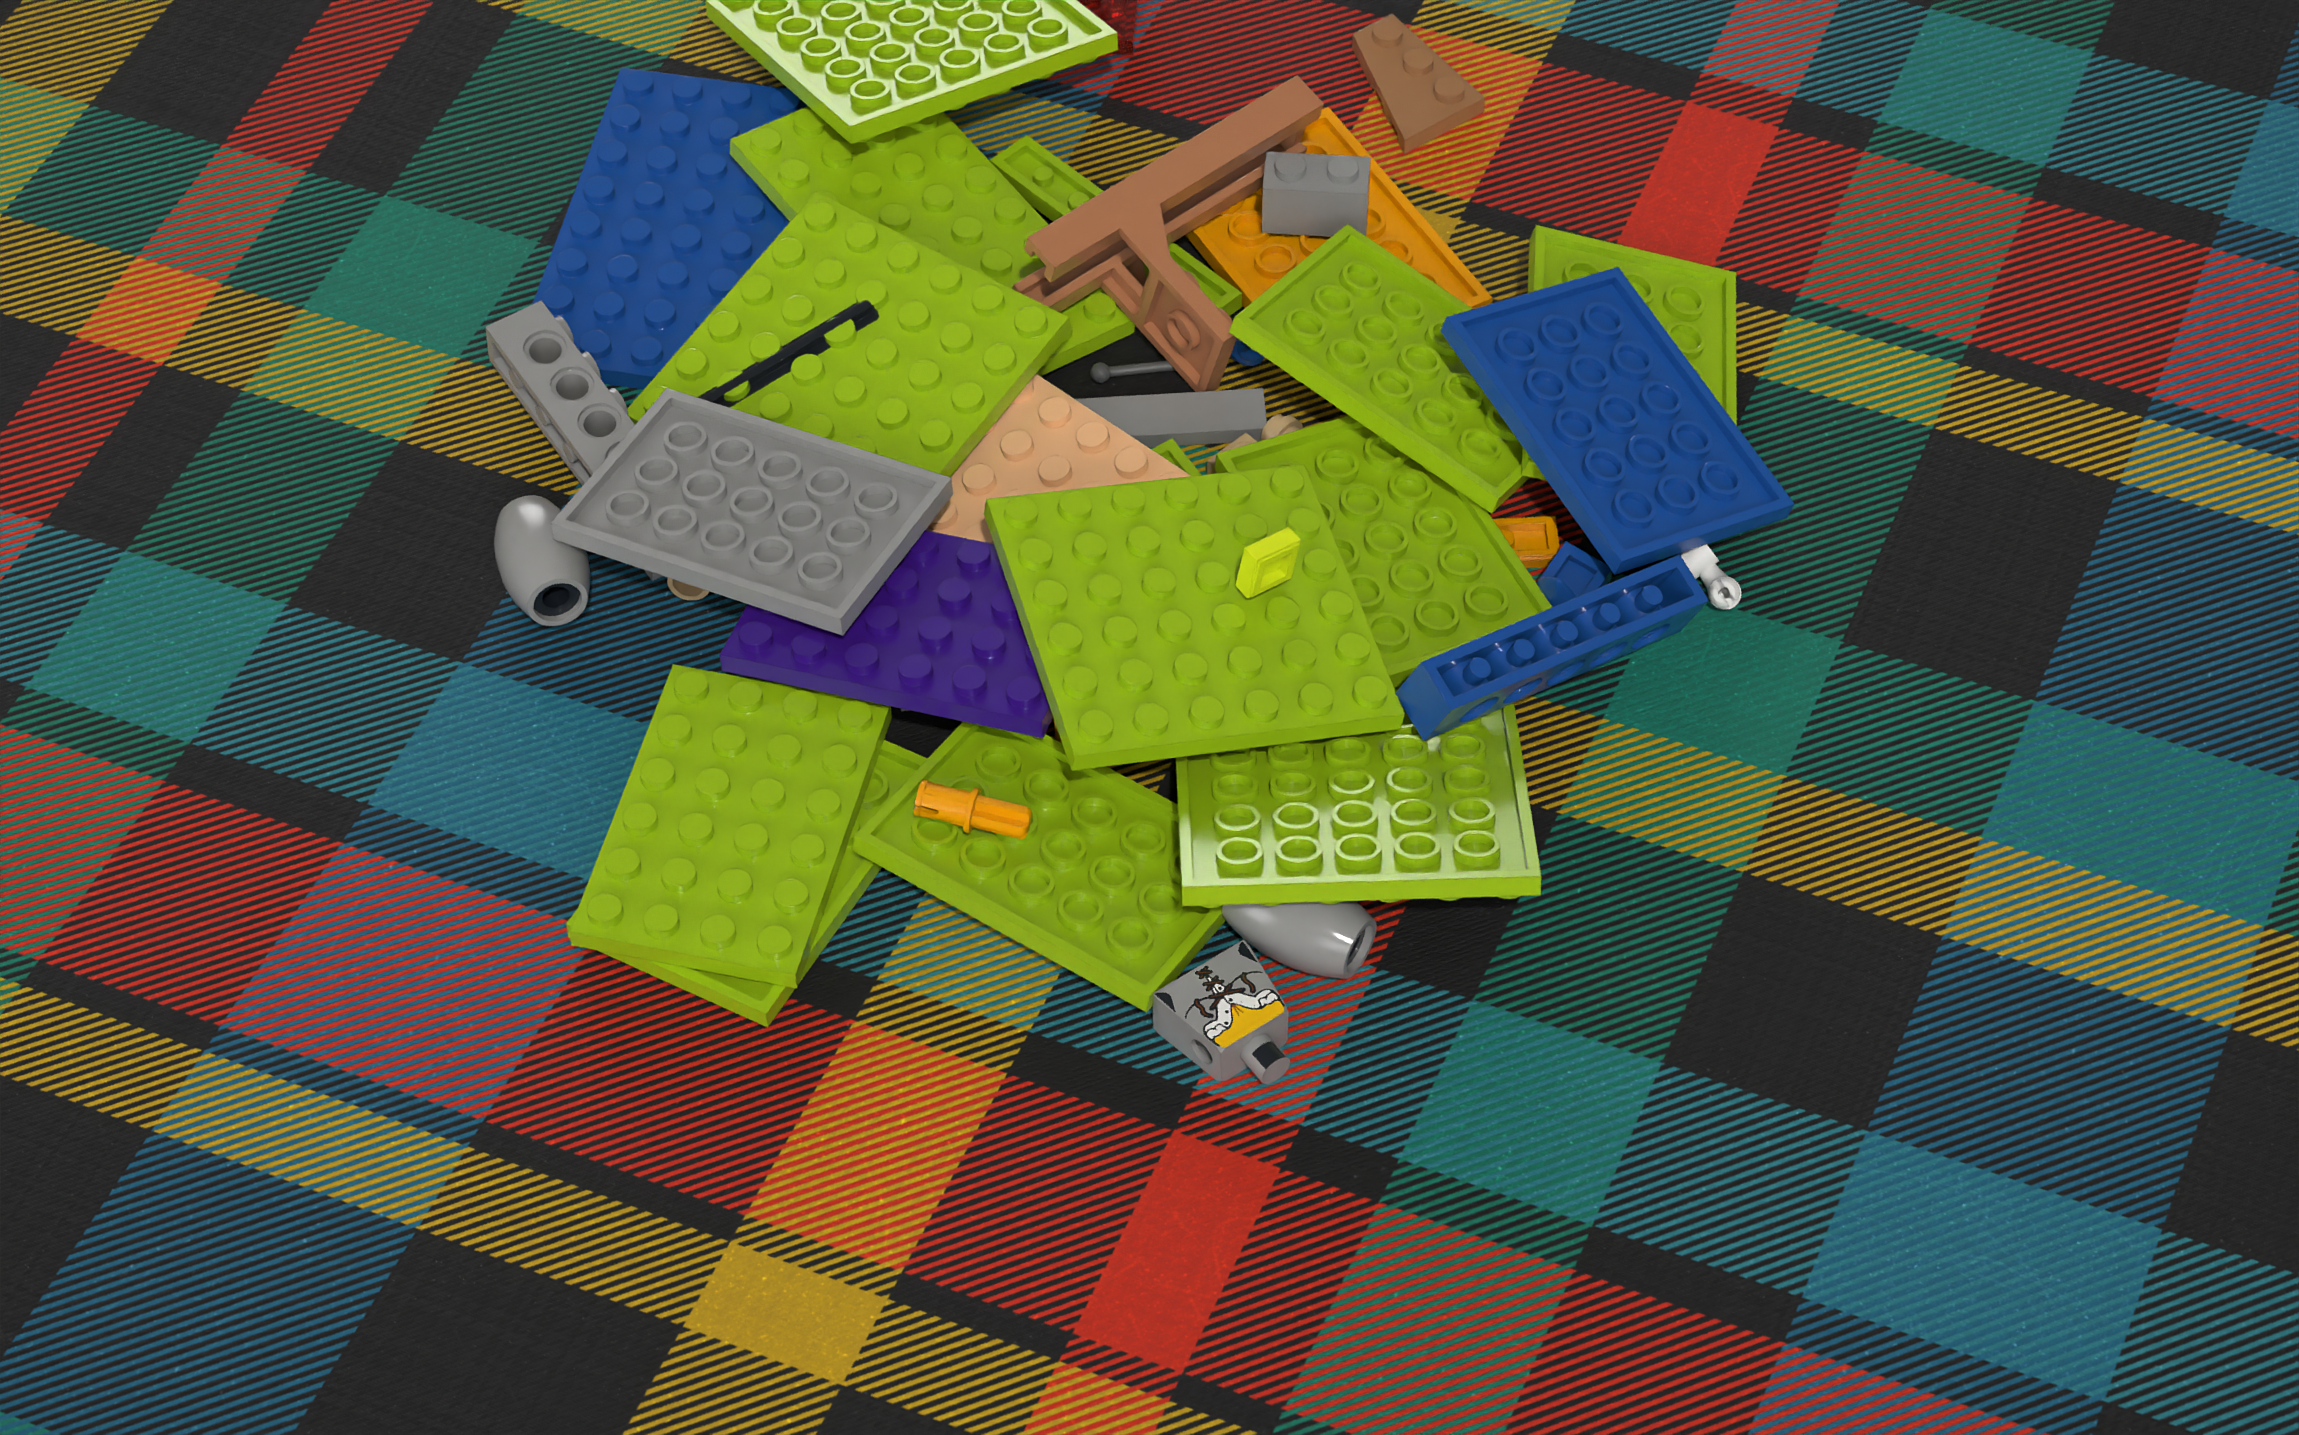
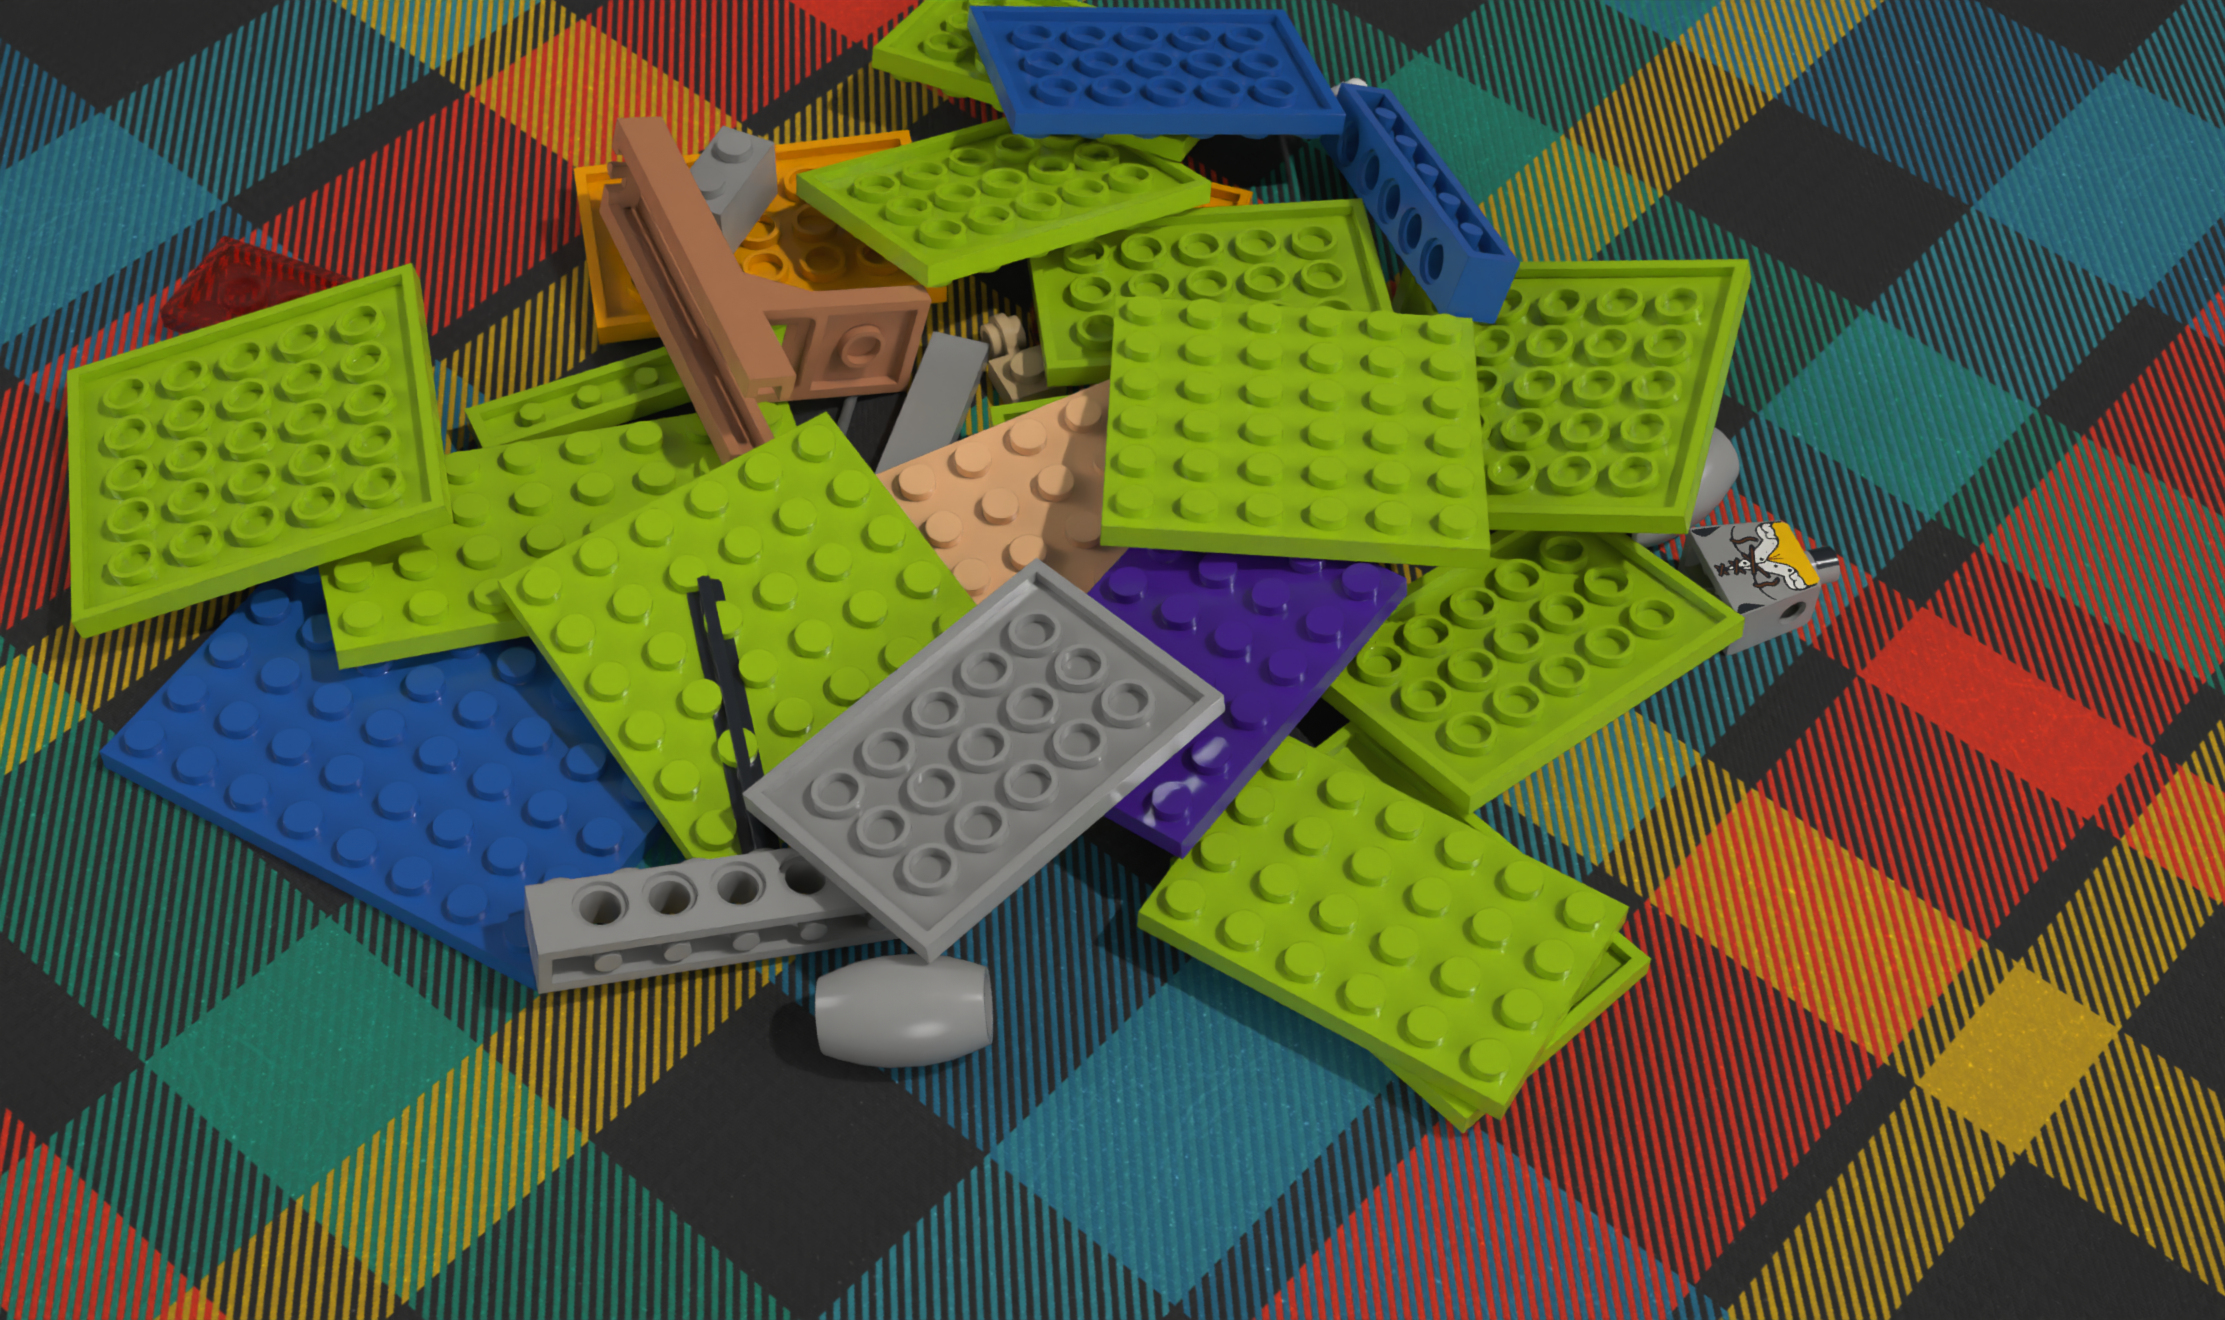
camera: 75 degrees left, 0 degrees up
(972, 810) = (1472, 686): light orange axle -> none
(1268, 562) = (1288, 331): neon yellow tile -> none
(1414, 83) = (558, 105): medium nougat wing -> none
(1572, 575) = (1297, 180): blue plate -> none

